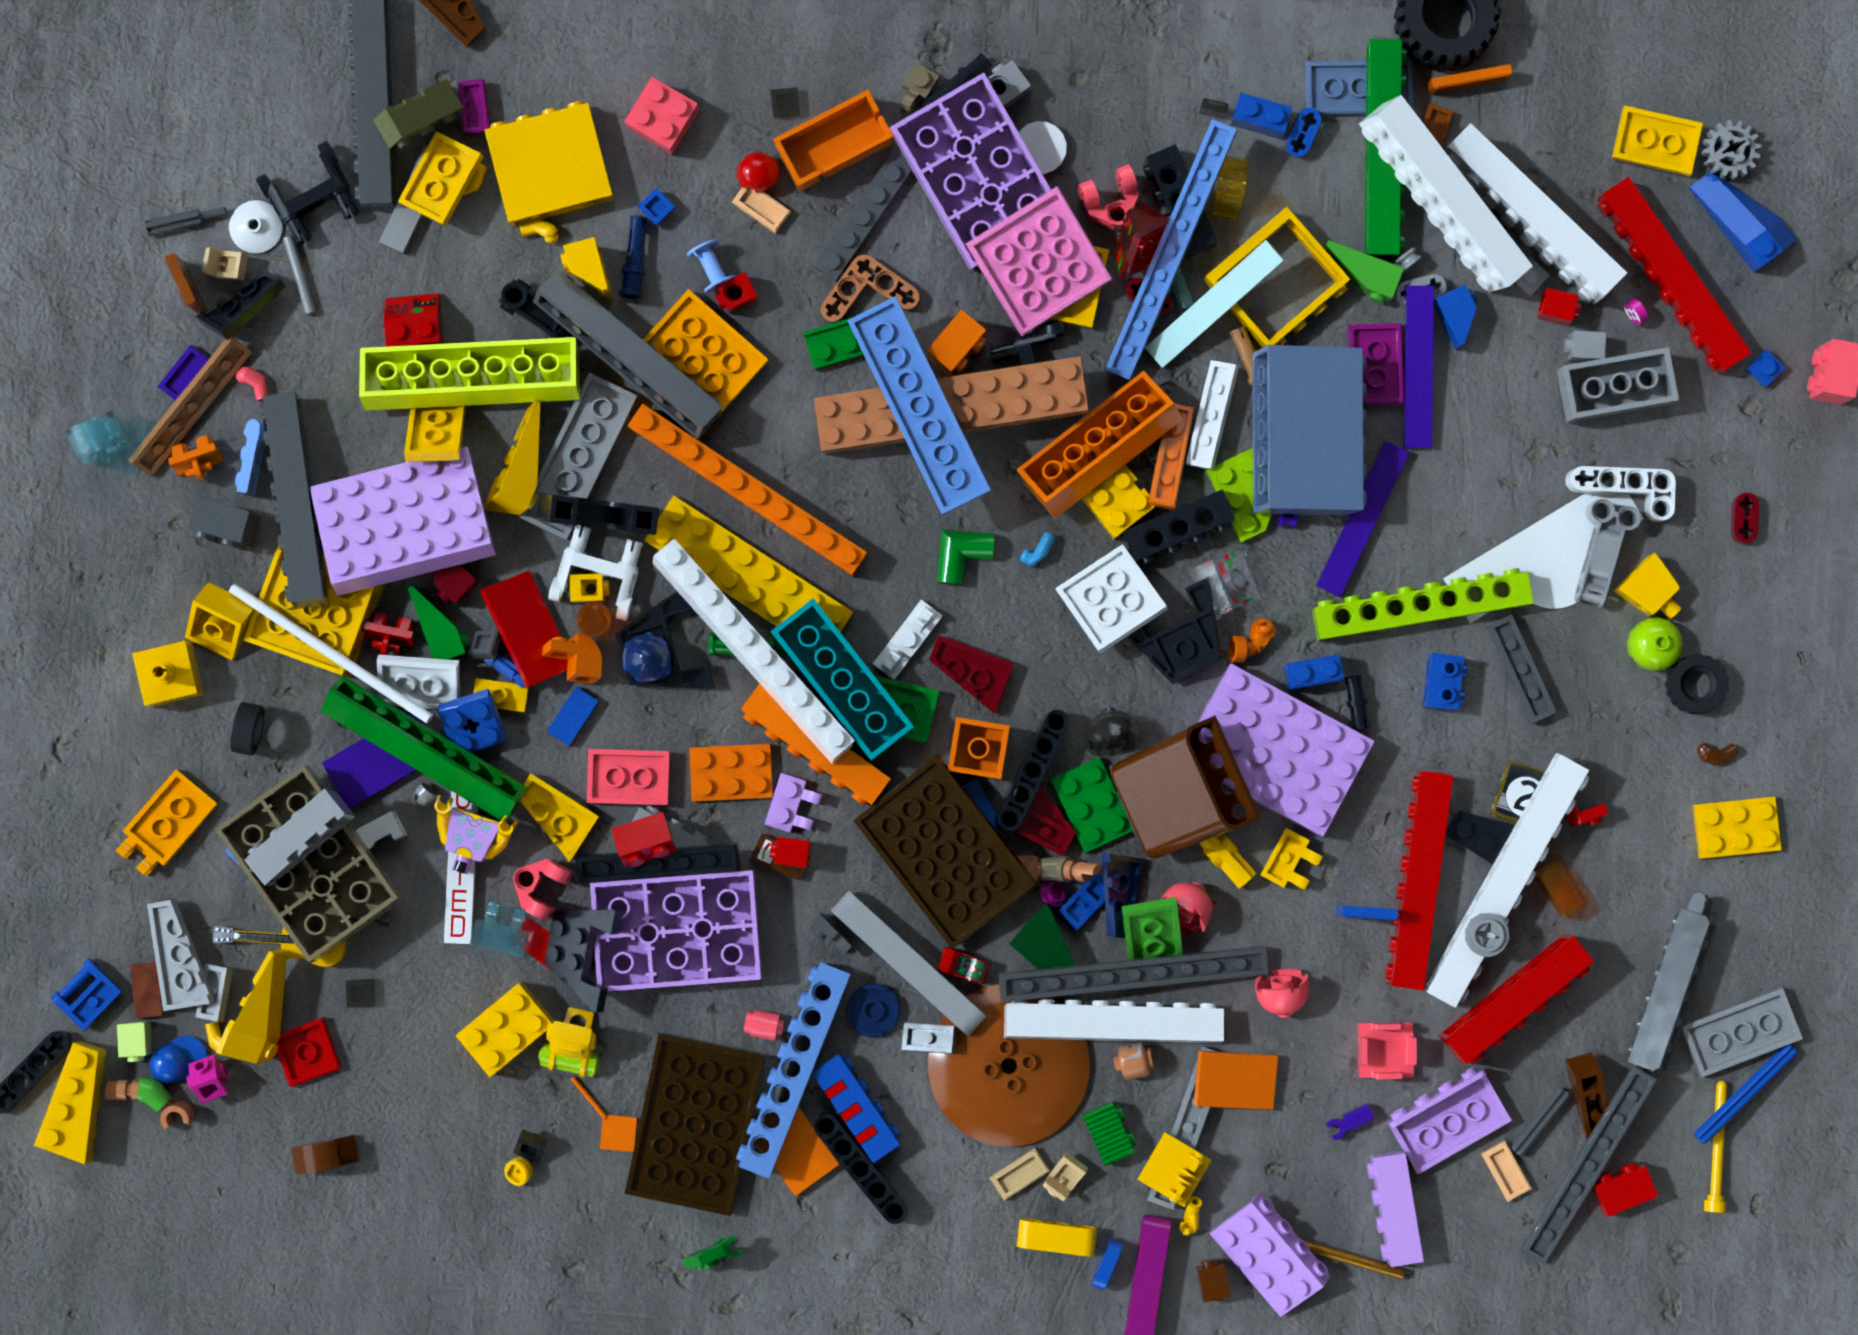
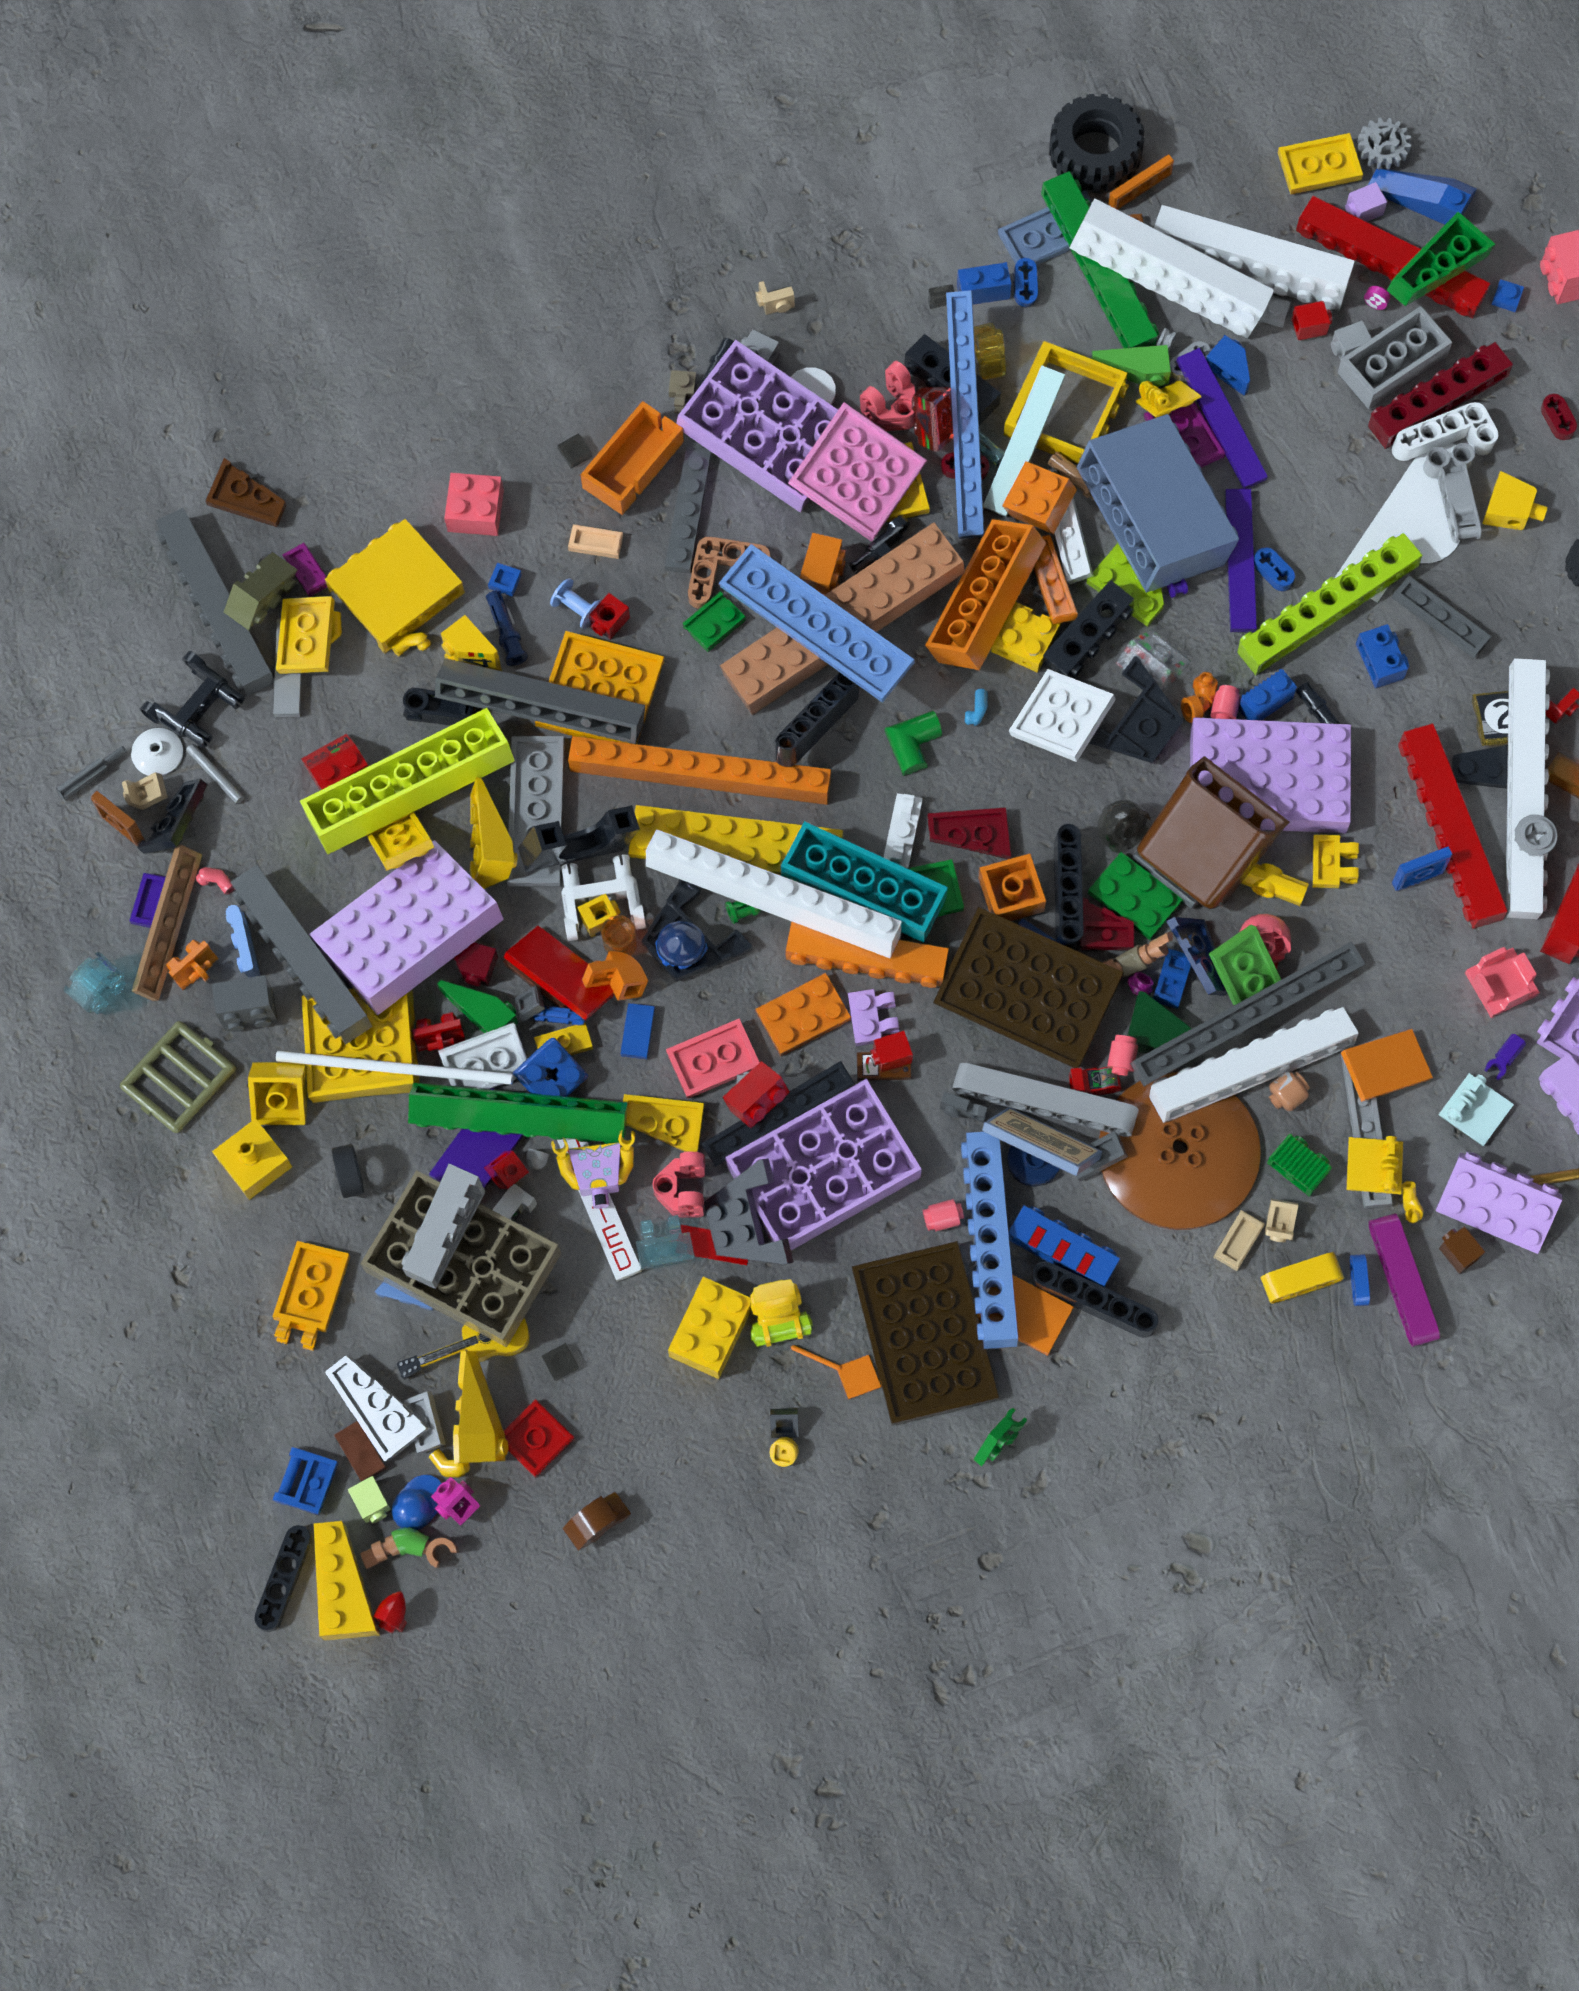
camera: 25 degrees left, 15 degrees down
(107, 1153) = (391, 1613): none -> red plate
(162, 583) = (162, 1047): none -> olive bar
(390, 796) = (506, 1169): none -> red brick
(758, 172) = (579, 512): red hair -> none
(869, 501) = (815, 720): none -> black beam
(883, 1005) = (1042, 1141): none -> tile
(997, 959) = (1122, 1053): none -> coral brick
(1053, 38) = (775, 301): none -> tan bracket
(1199, 369) = (1039, 497): none -> orange brick
(1271, 660) = (1226, 703): none -> coral brick
(1283, 992) = (1387, 972): coral cylinder -> none
(1297, 1157) = (1476, 1109): none -> light aqua hinge
(1375, 322) = (1164, 400): none -> yellow hinge
(1395, 542) = (1276, 568): none -> blue beam
(1655, 644) = (1542, 547): lime cylinder -> none
(1677, 206) = (1366, 203): none -> lavender brick
(1711, 440) = (1489, 358): none -> dark red brick
(1720, 307) = (1446, 255): none -> green wedge

